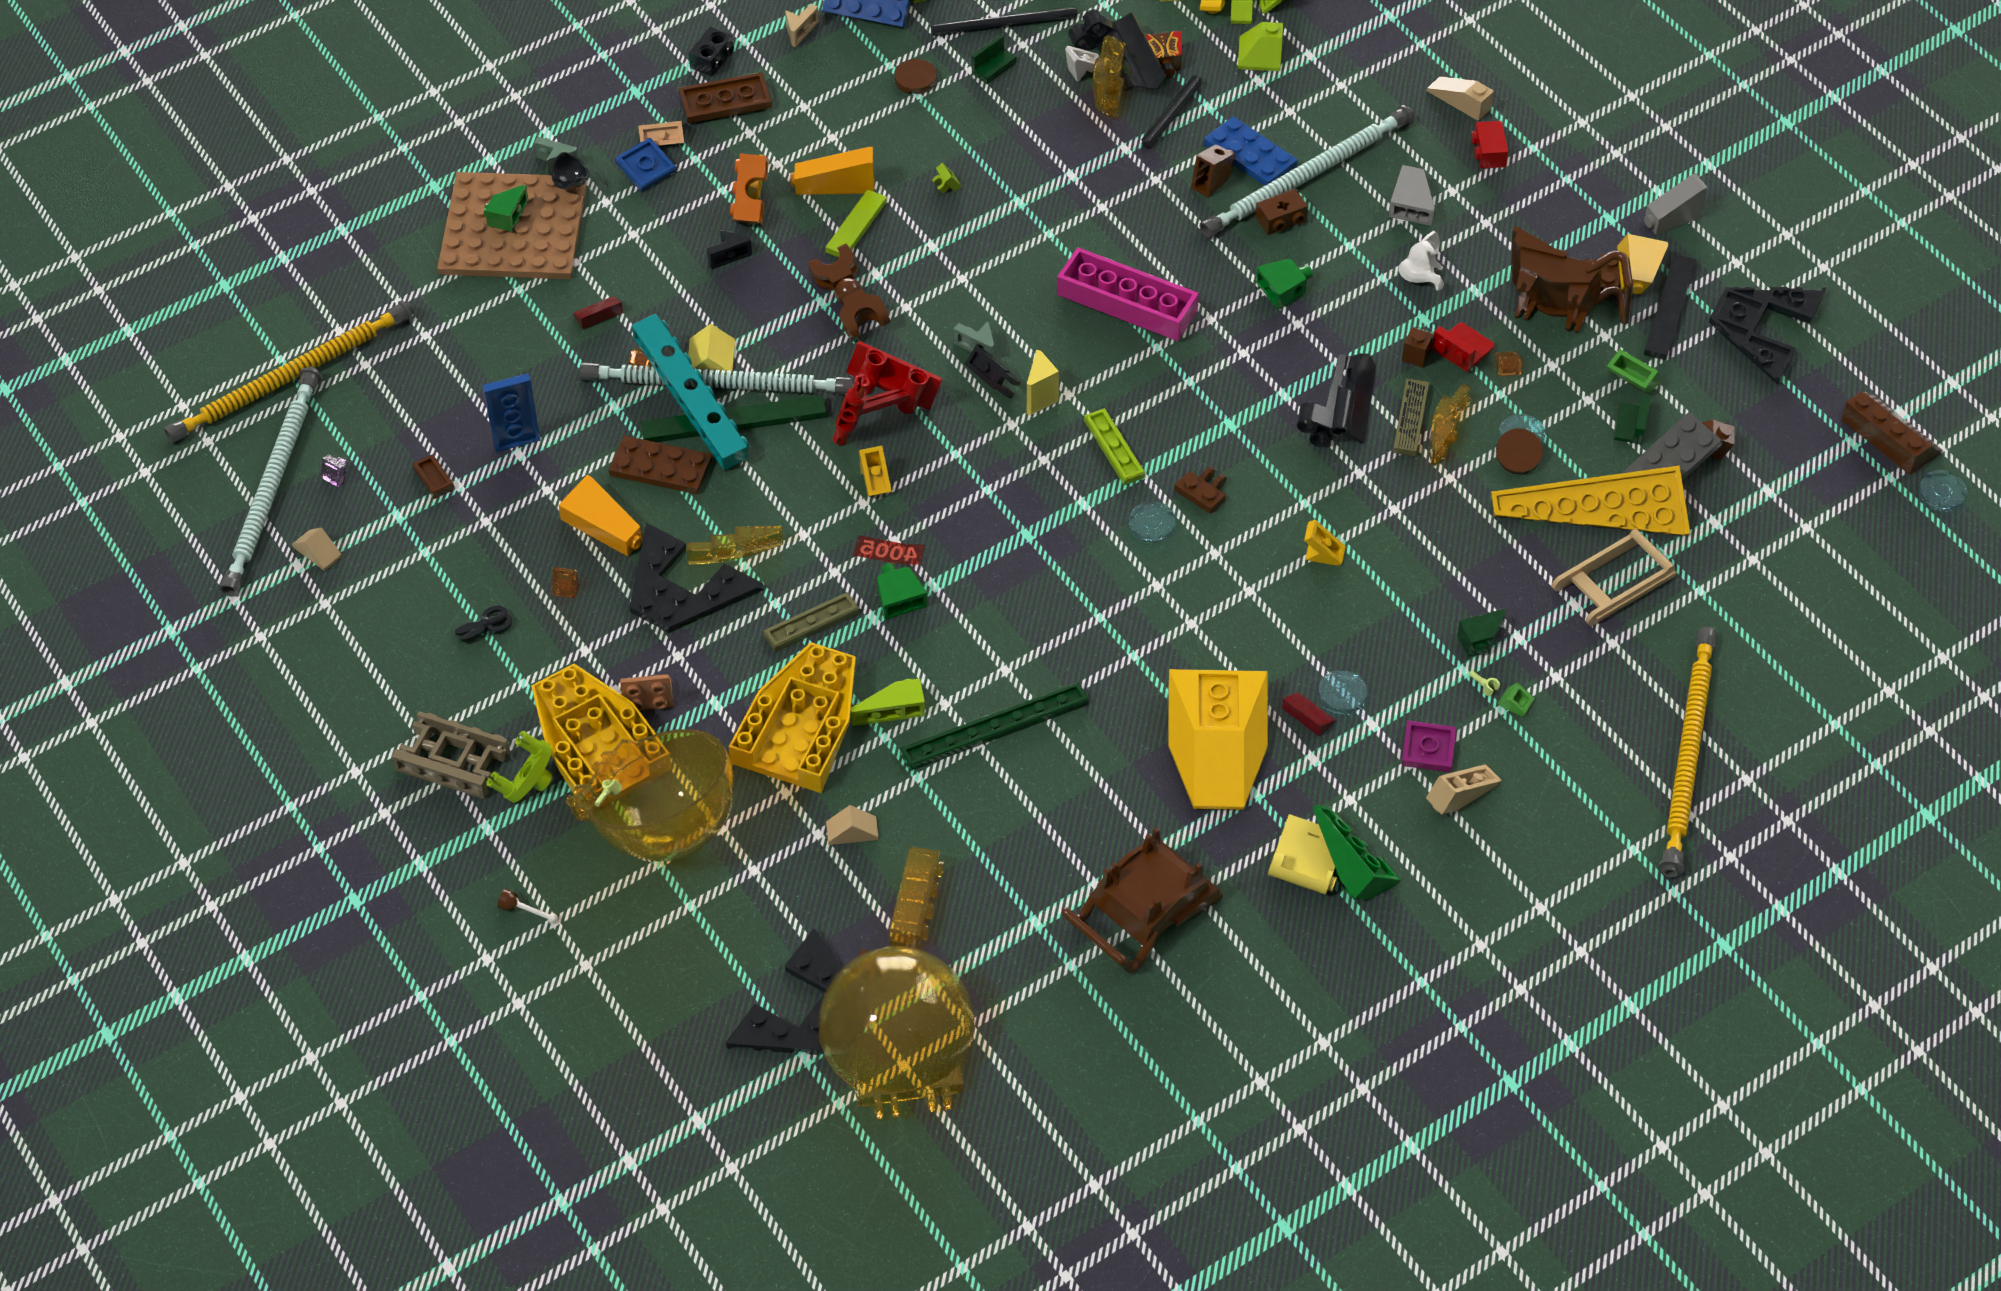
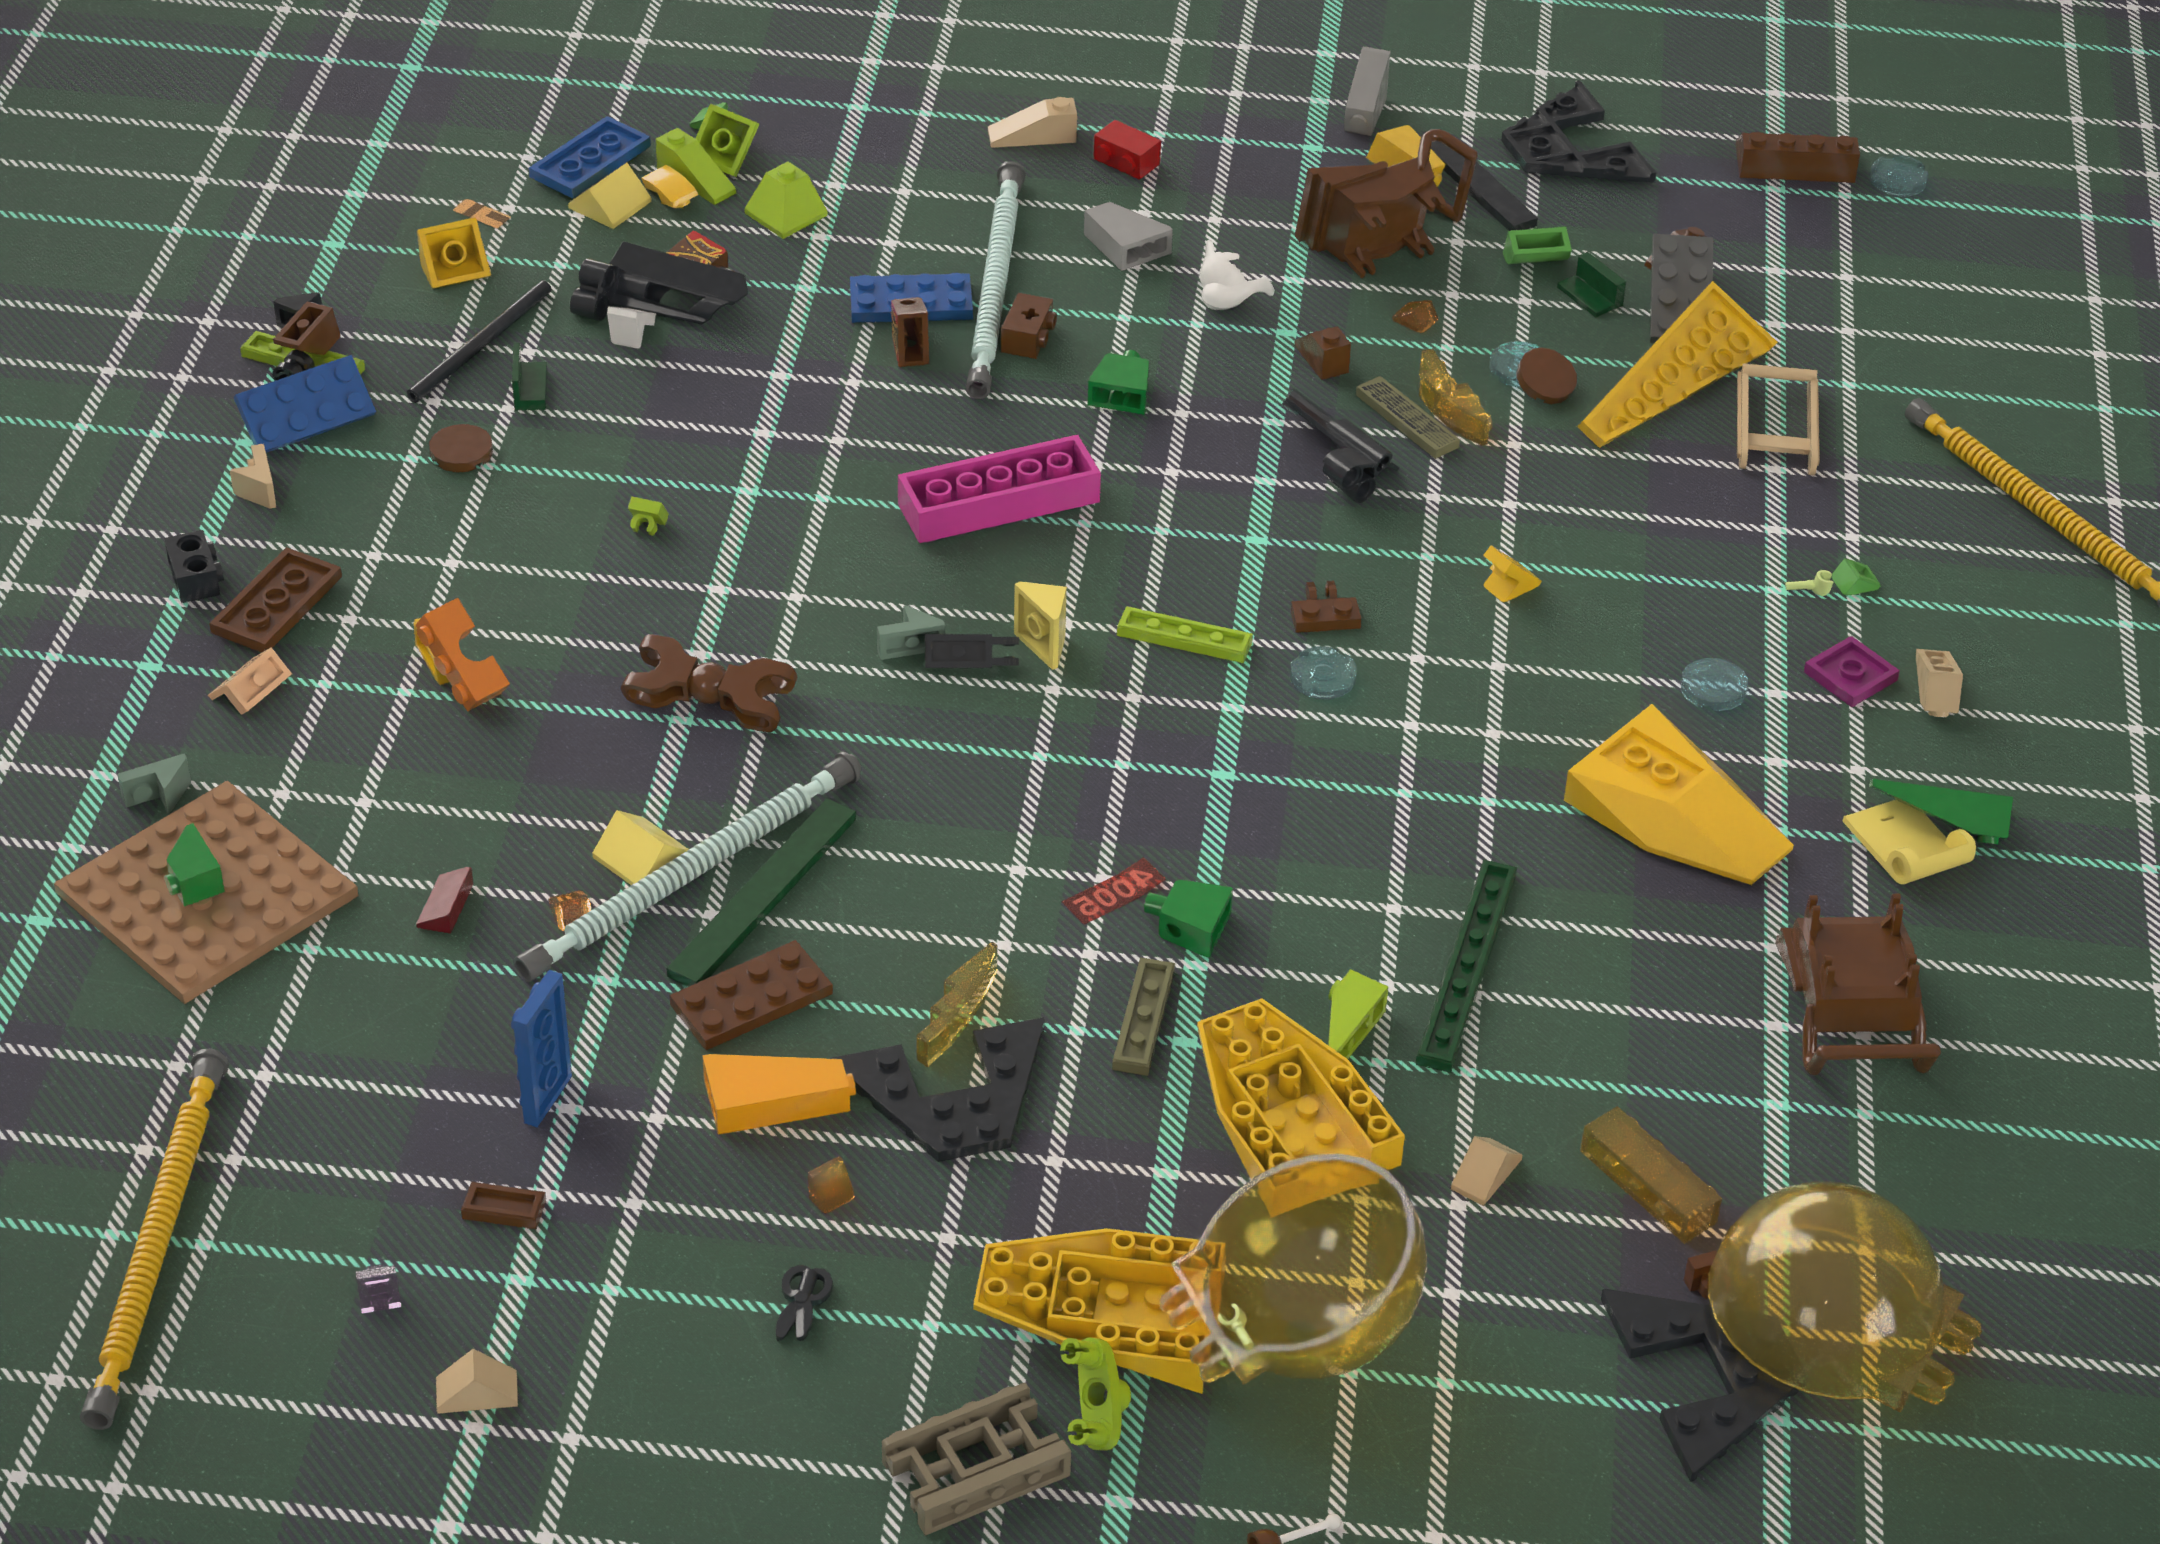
camera: 50 degrees left, 10 degrees down
(270, 481) = (313, 1364): light aqua hose -> none
(569, 171) = (218, 781): black helmet -> none
(645, 164) = (281, 722): blue tile -> none
(648, 691) = (1096, 1205): nougat bracket -> none
(697, 404) = (693, 890): teal piece -> none
(732, 248) = (508, 734): black slope -> none
(835, 174) = (528, 582): light orange slope -> none
(857, 222) = (609, 621): lime tile -> none
(873, 368) = (907, 727): red plate -> none
(874, 470) = (996, 818): yellow slope -> none
(1106, 76) = (682, 321): clear yellow slope -> none
(1171, 112) = (781, 312): black axle -> none
(1307, 713) = (1716, 726): dark red slope -> none
(1461, 345) = (1366, 326): red bracket -> none
(1481, 632) = (1751, 544): dark green slope -> none

